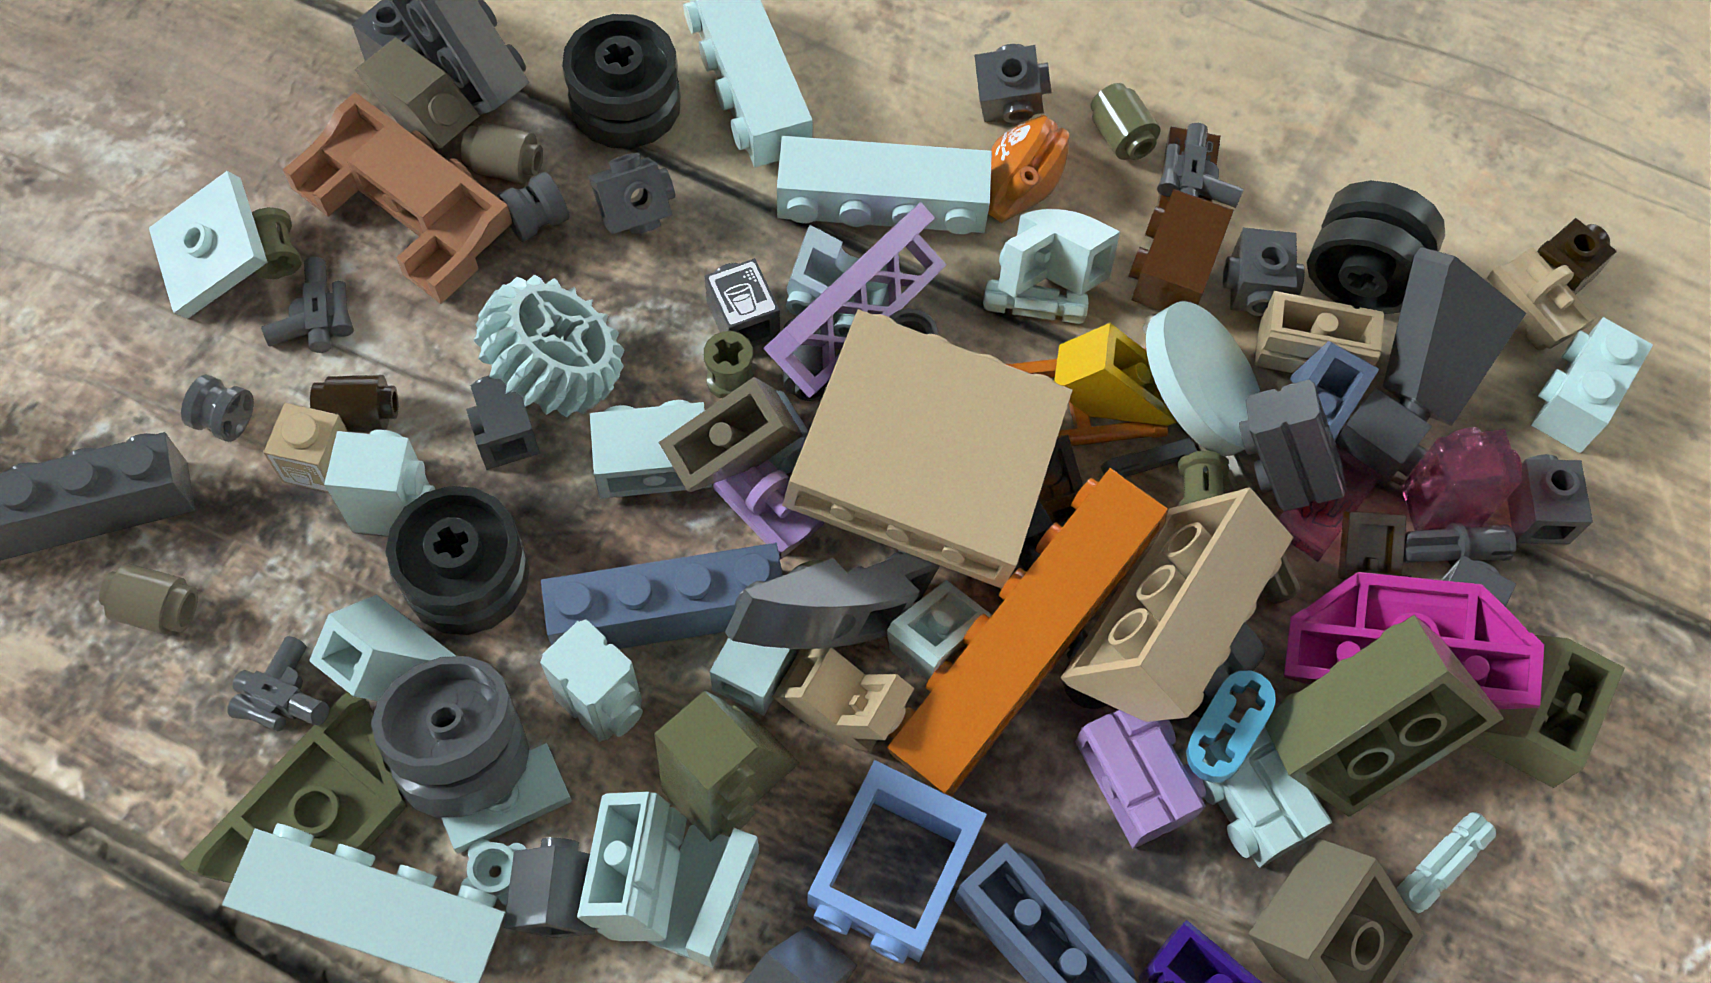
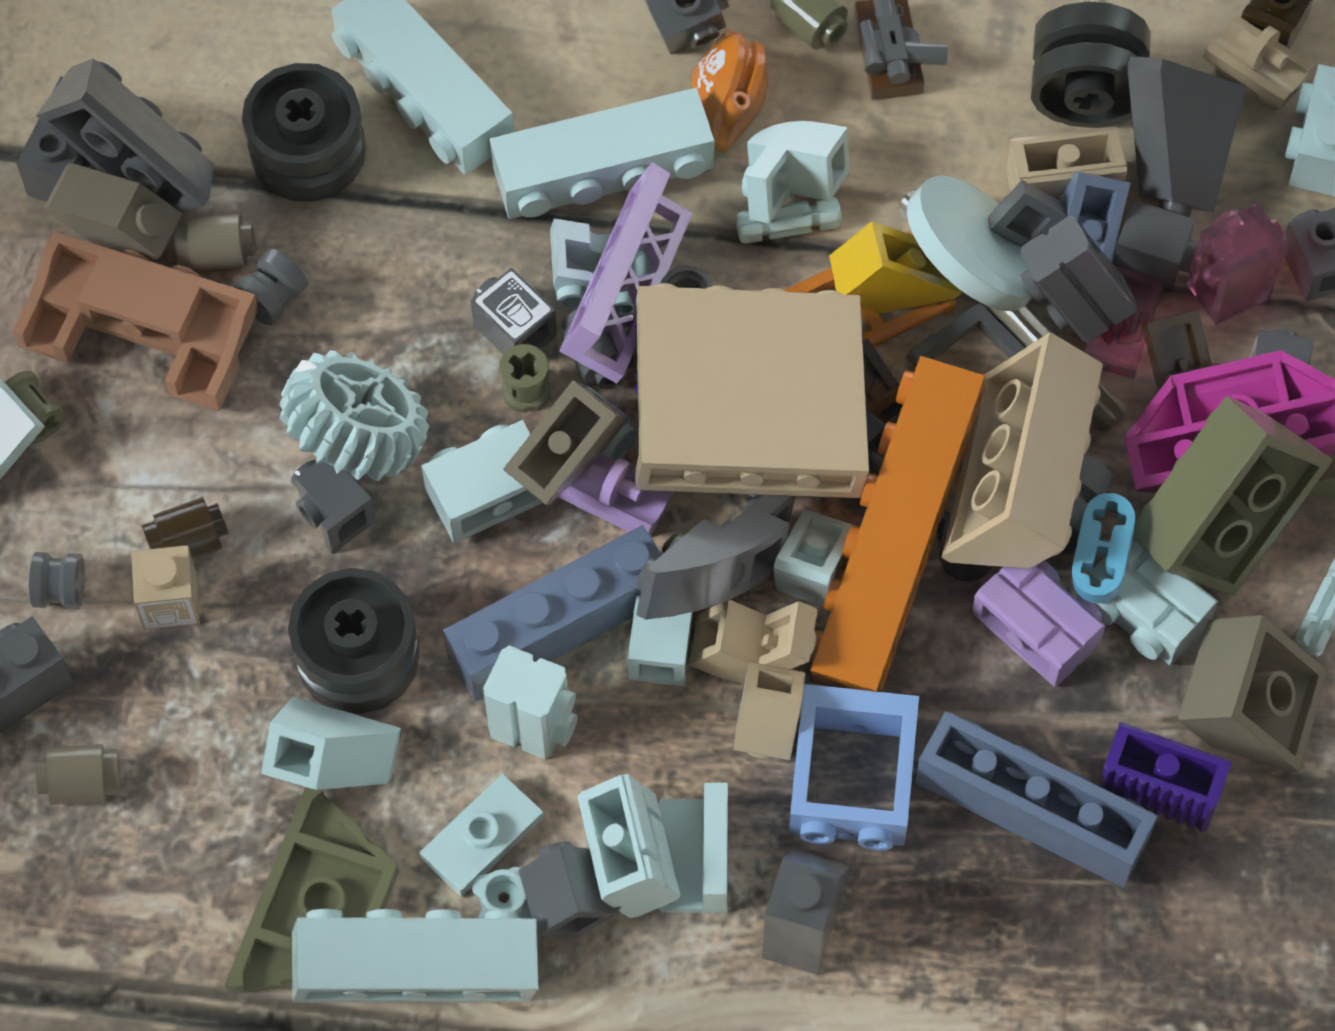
camera: 15 degrees left, 0 degrees up
(276, 692) = (238, 814): dark grey piece -> none
(316, 313) = (101, 460): dark grey piece -> none
(374, 479) = (254, 594): light aqua brick -> none
(451, 736) = (422, 791): dark grey wheel -> none
(614, 192) = (363, 243): dark grey brick -> none
(718, 764) = (671, 735): olive wedge -> none
(829, 774) = (769, 711): none -> tan brick
(1182, 251) = (910, 128): reddish brown brick -> none
(1191, 469) = (998, 340): olive bush -> none
(1259, 266) = (990, 117): dark grey brick -> none
(1265, 366) = (1026, 214): none -> dark grey plate
(1460, 541) = (1255, 316): dark grey axle -> none

